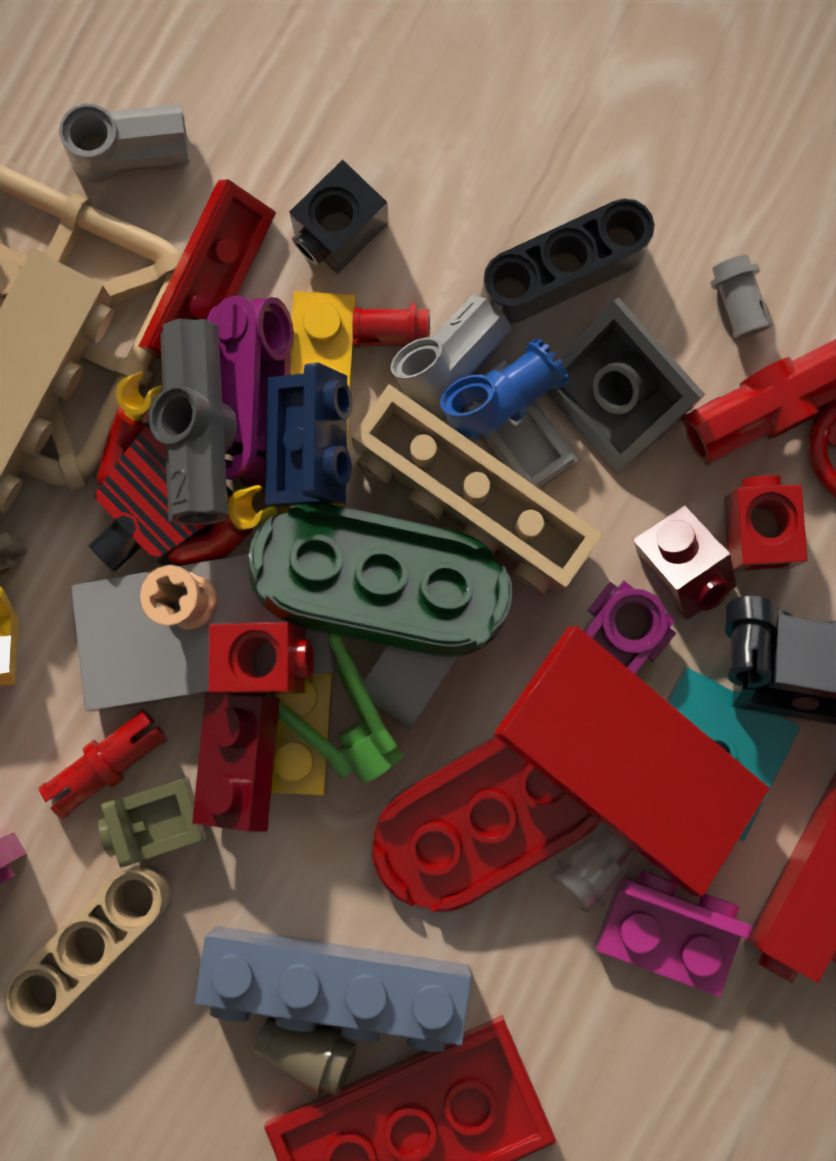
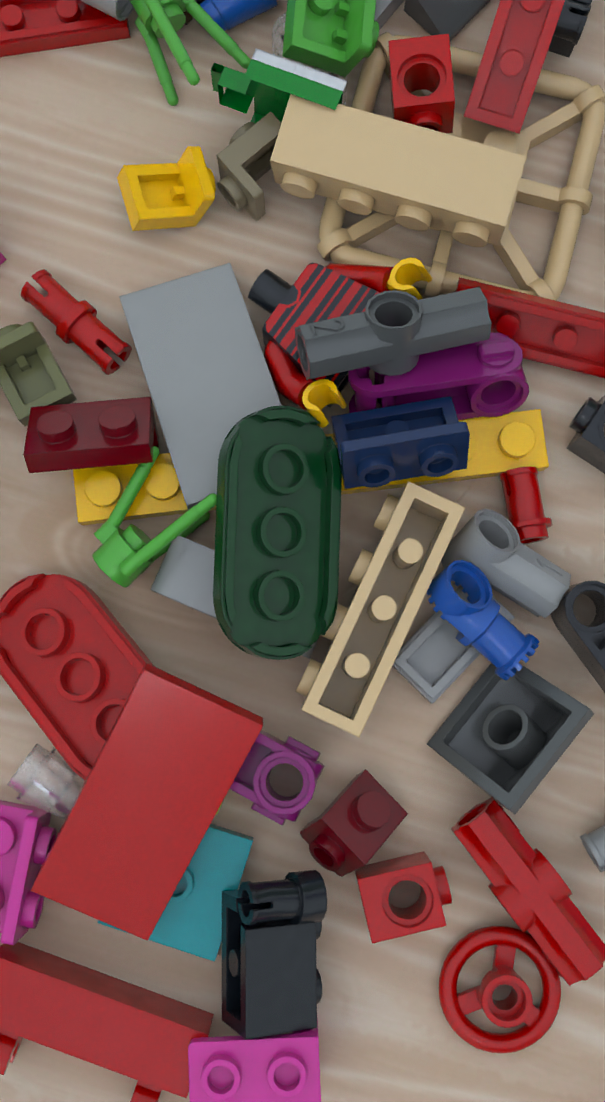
camera: 80 degrees right, 0 degrees up
(163, 589) = (236, 341): light nougat bush -> none
(233, 652) = (178, 411): red brick -> none

